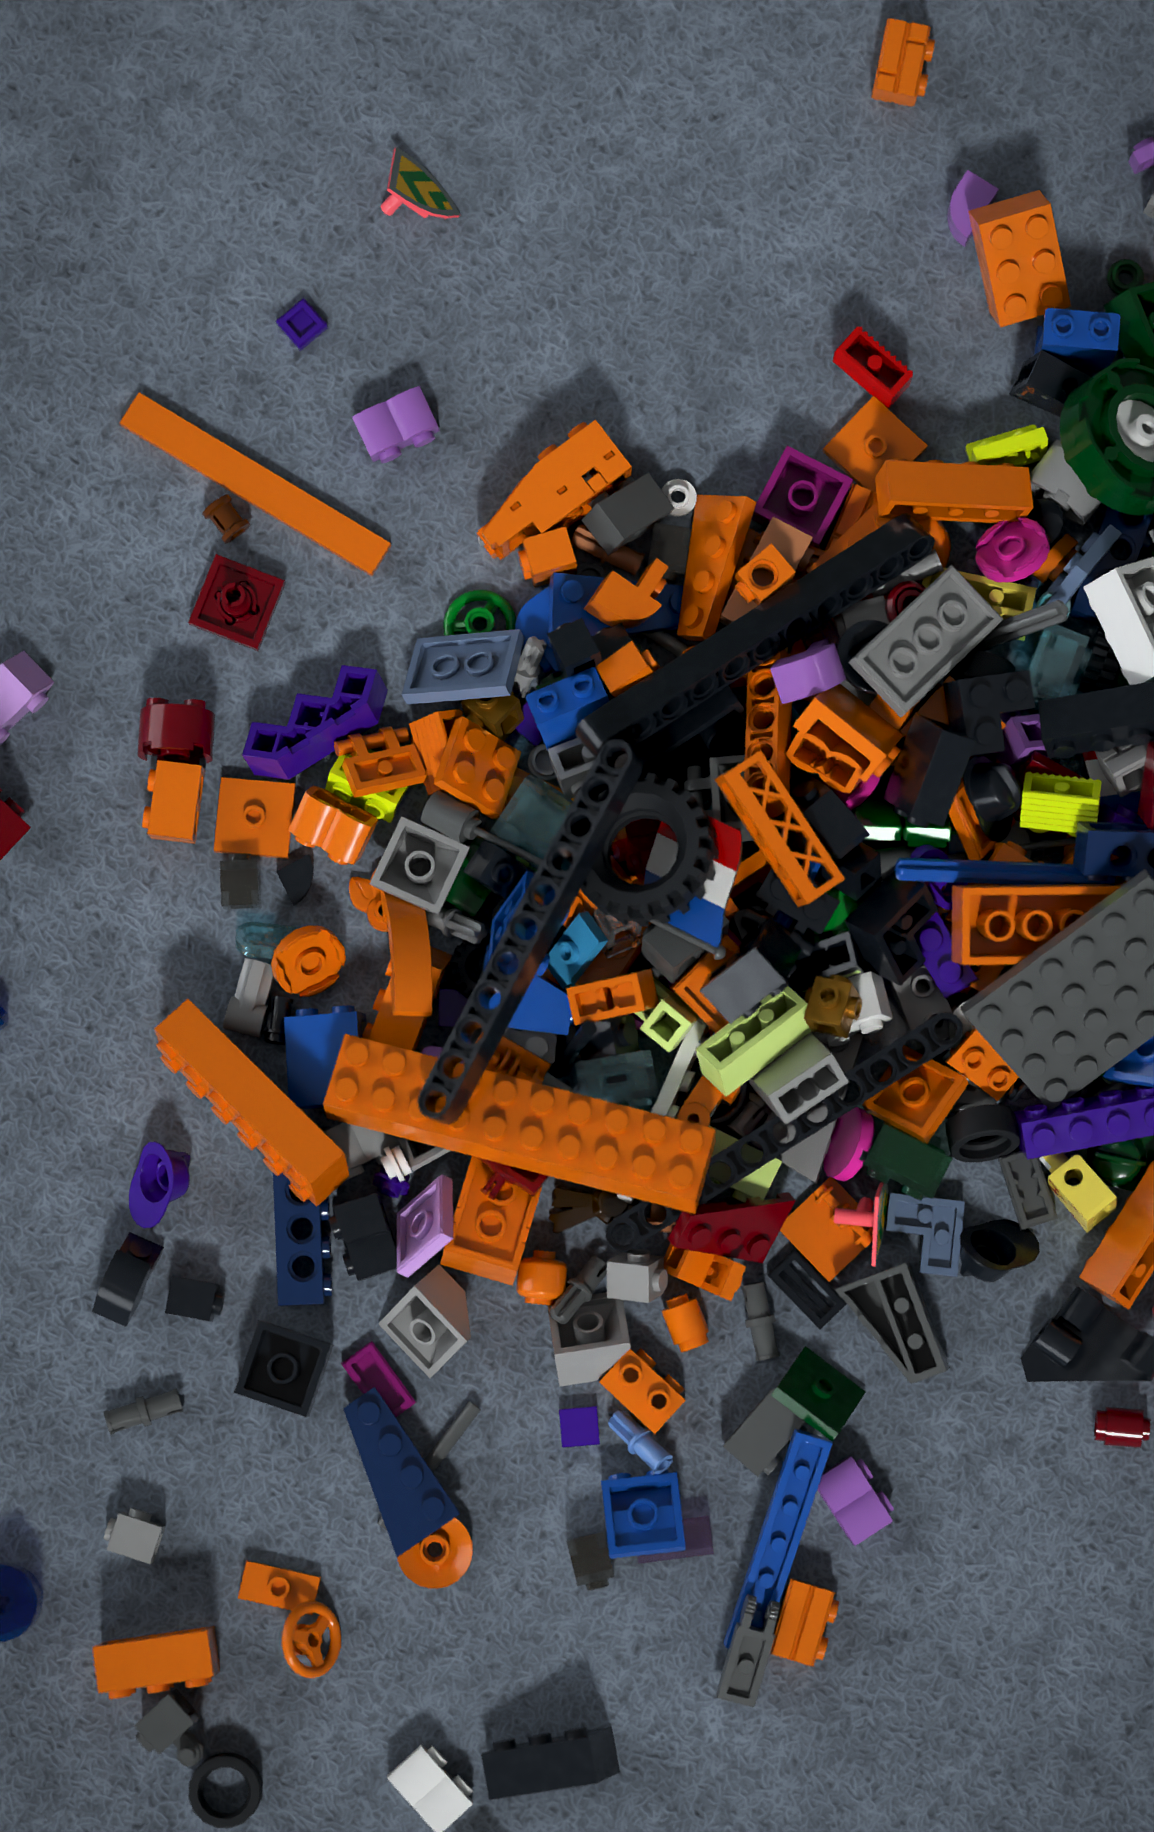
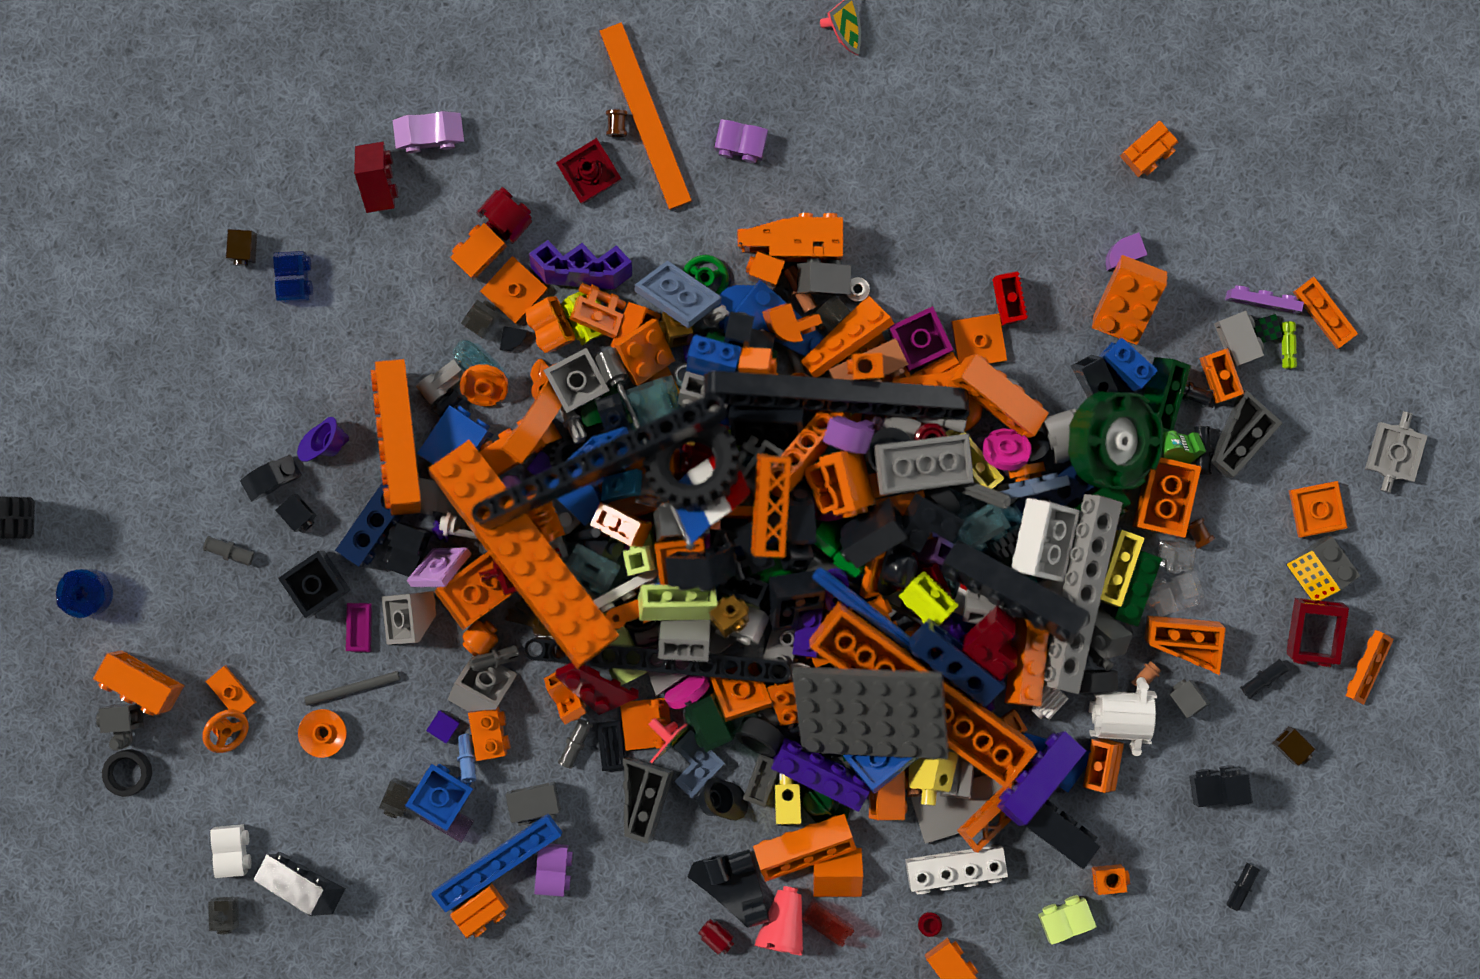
camera: 30 degrees right, 5 degrees up
(134, 1535) = (176, 610): light grey brick -> none
(301, 324) = (733, 50): dark purple tile -> none
(401, 1480) = (331, 685): dark blue wing -> none
(636, 1276) = (527, 674): light grey brick -> none
(685, 1322) = (536, 715): orange brick -> none
(748, 1655) = (438, 907): dark grey hinge -> none
(818, 1393) = (575, 804): dark green plate -> none
(1014, 447) = (1047, 394): neon yellow bracket -> none
(1124, 266) = (1183, 345): dark green plate -> none

